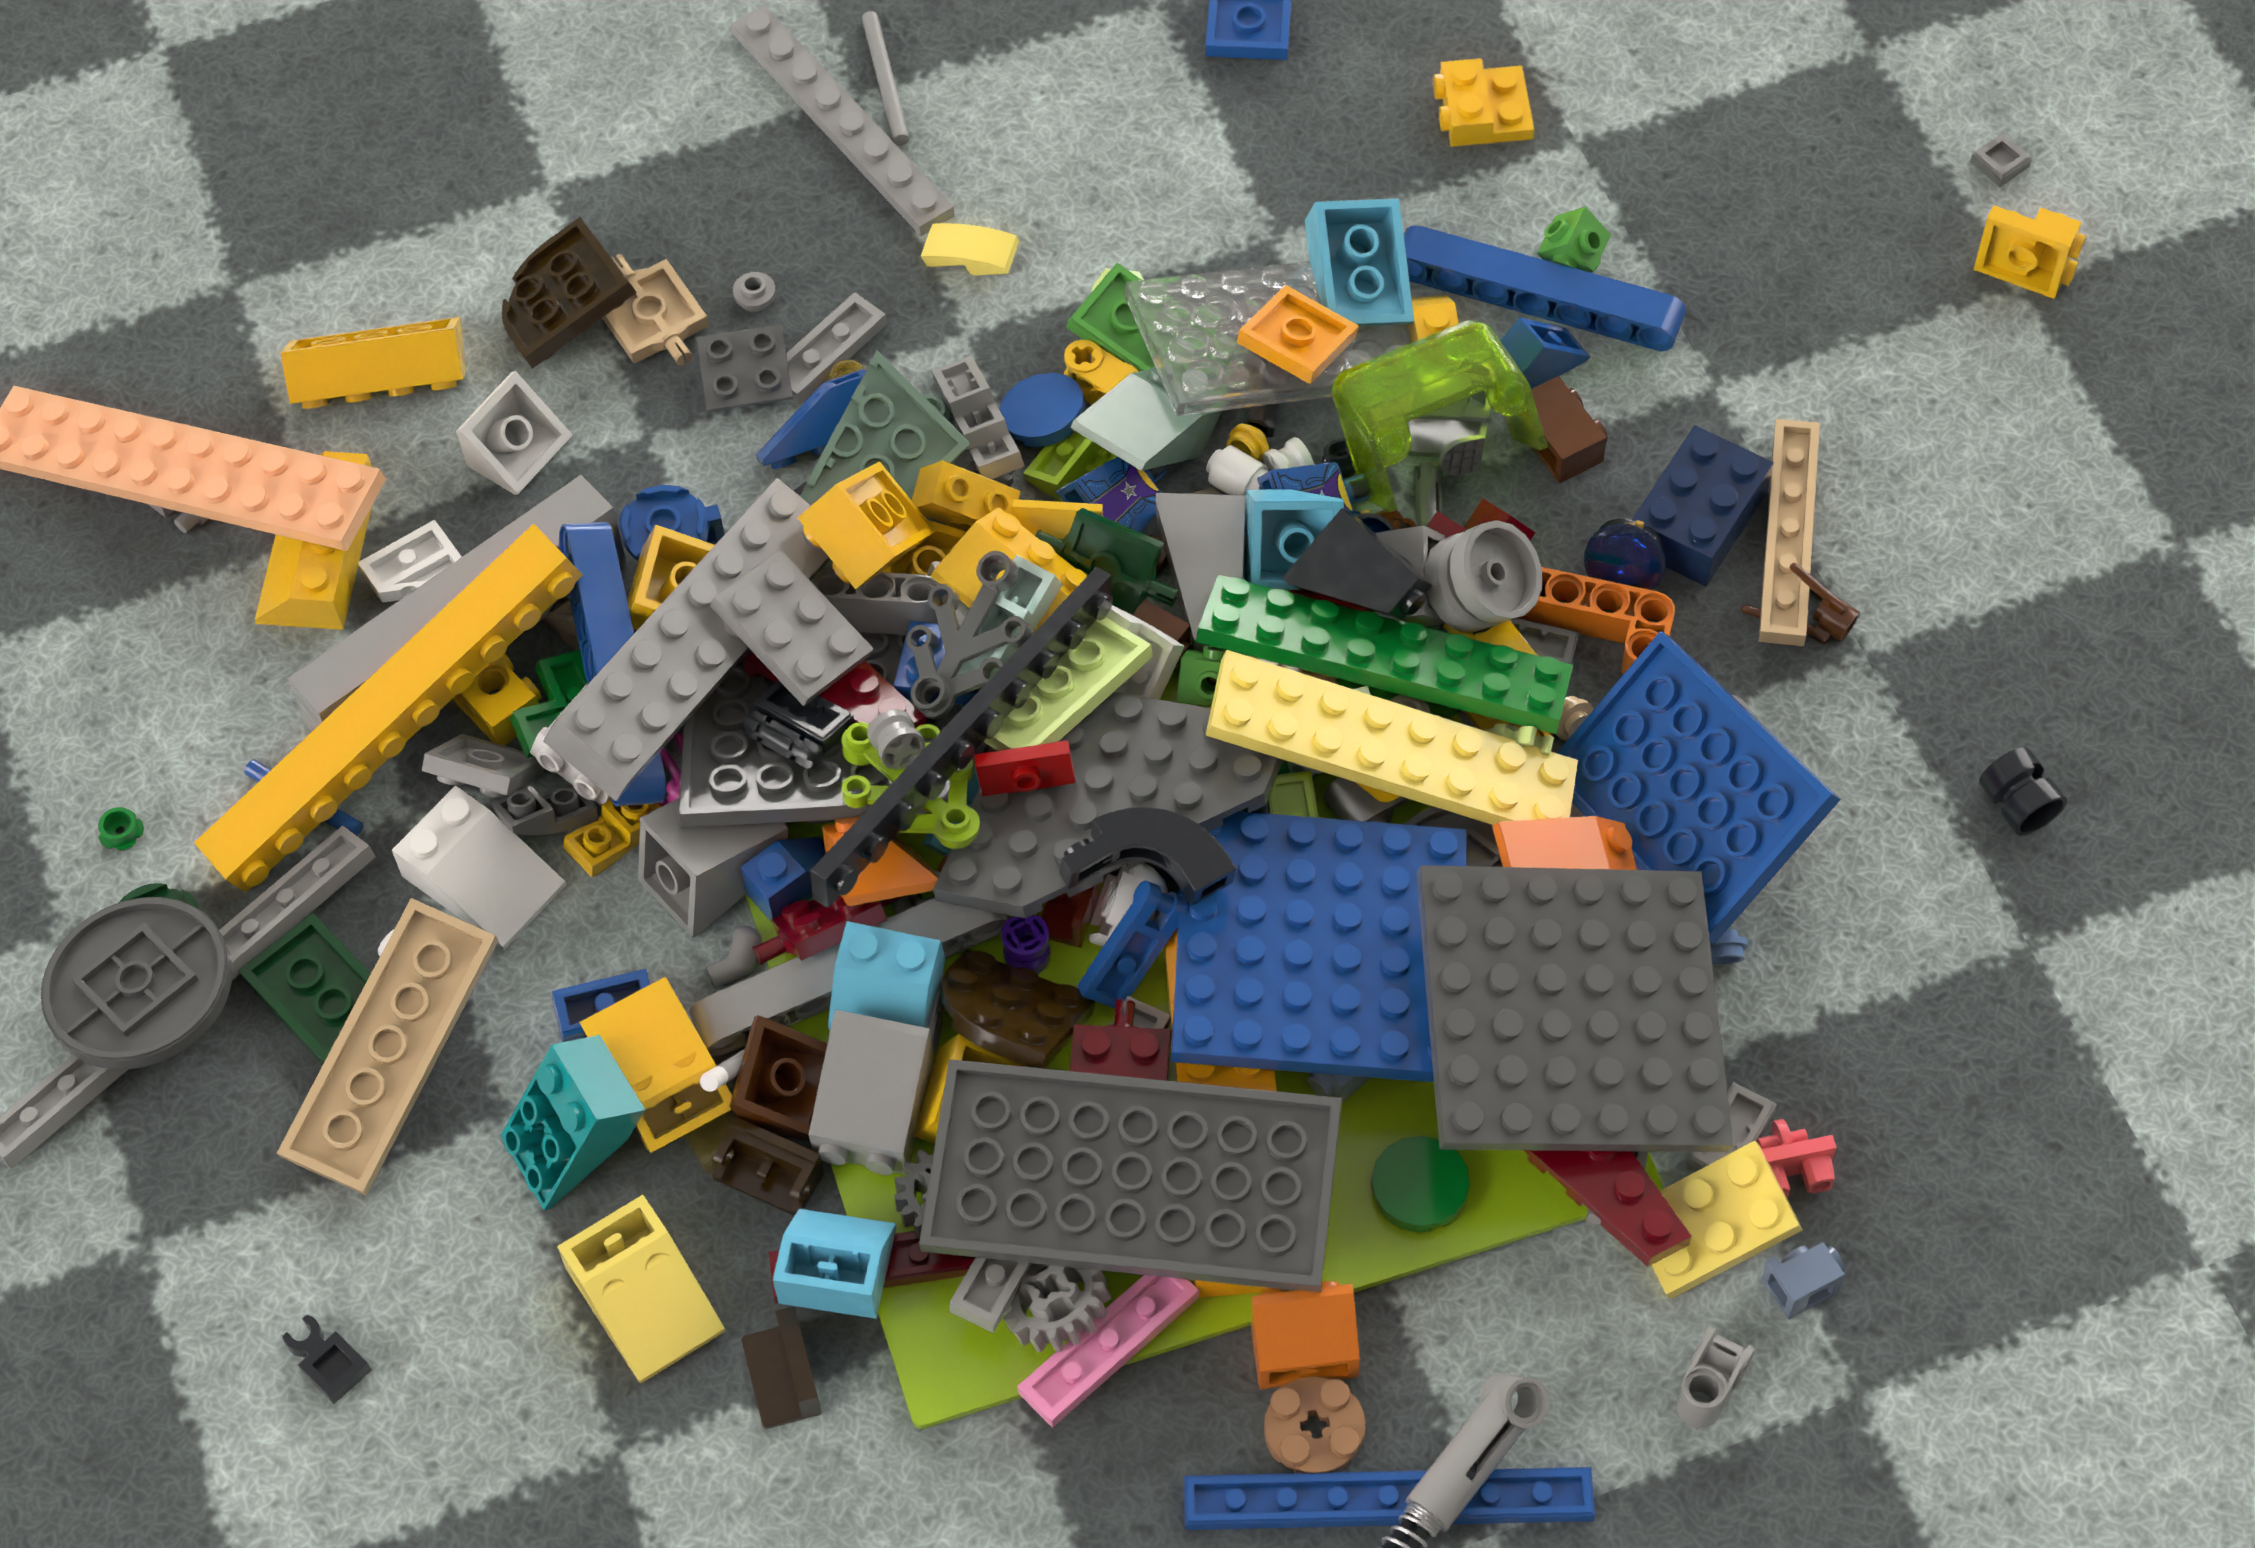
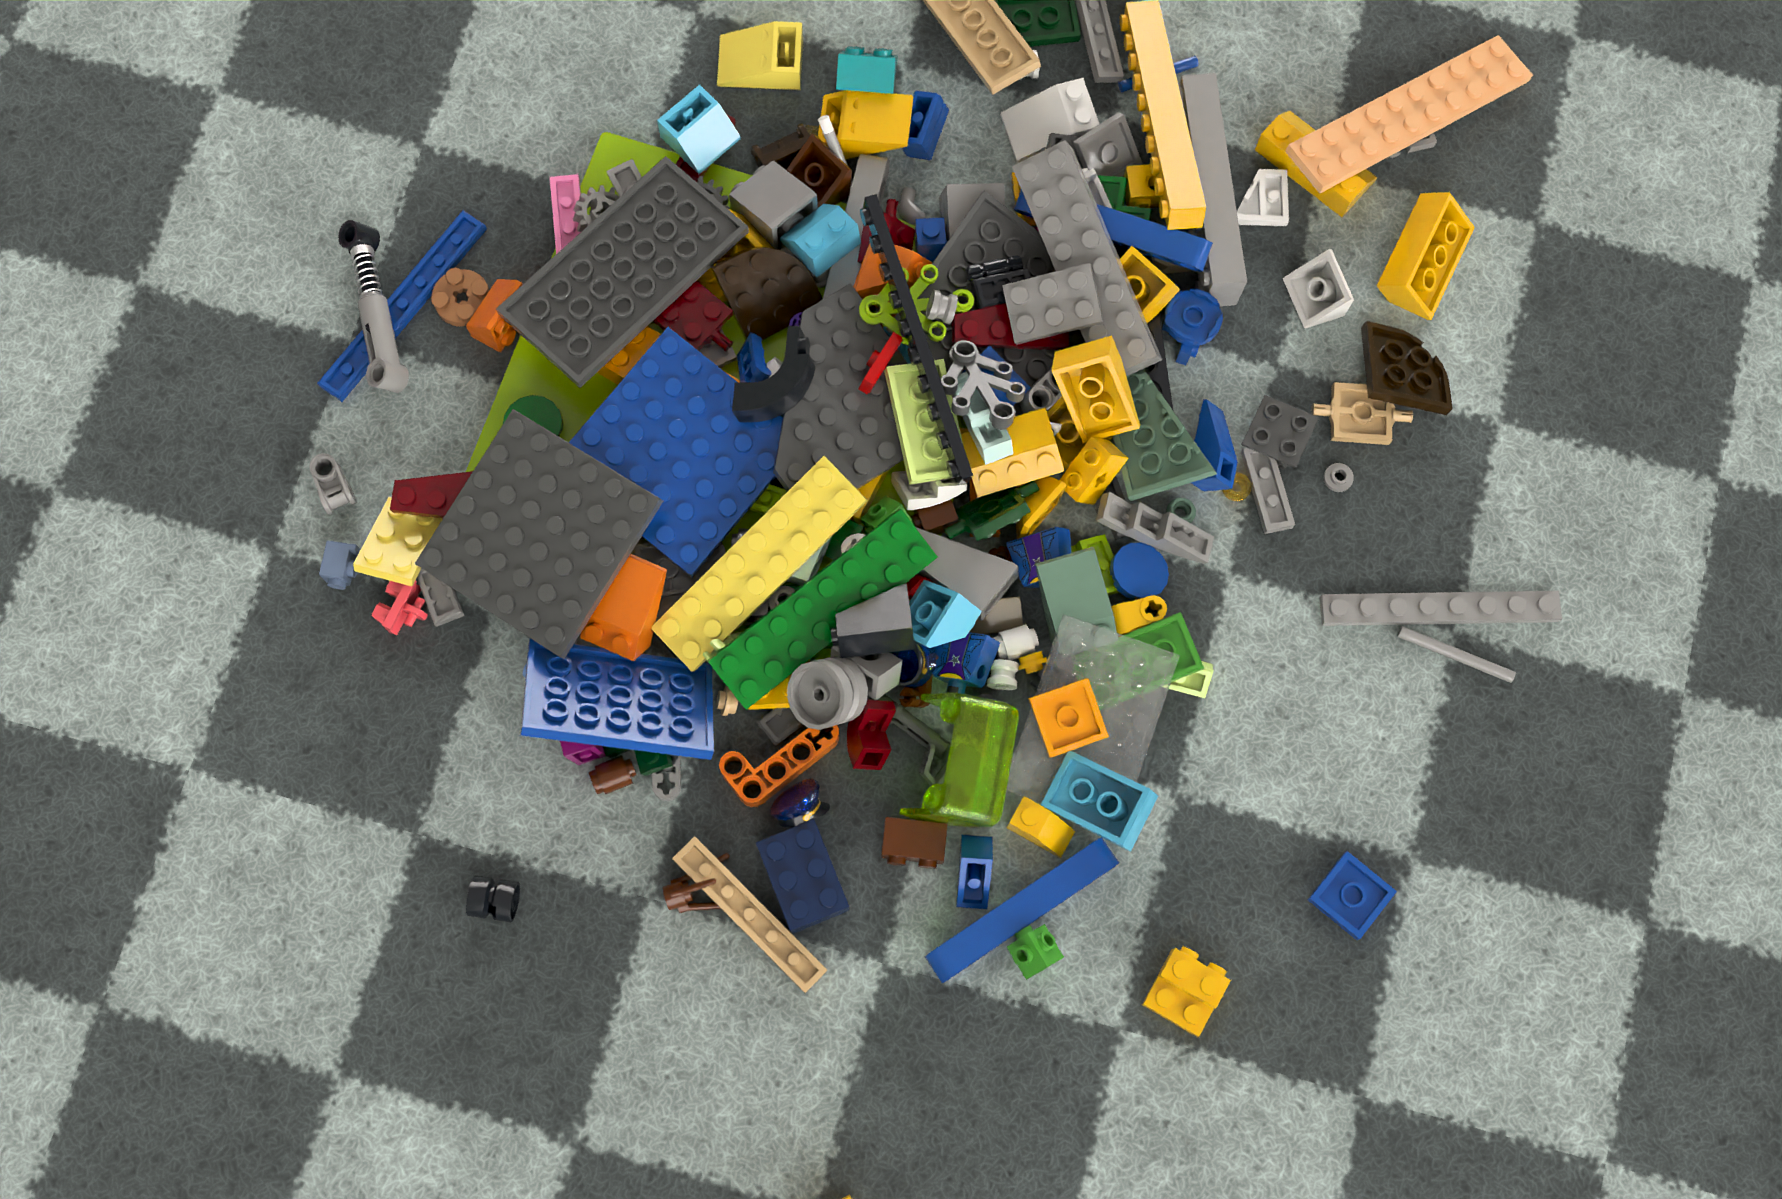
camera: 120 degrees right, 15 degrees up
(781, 1372) = (665, 92): dark brown panel -> none
(977, 247) = (1285, 611): light yellow slope -> none

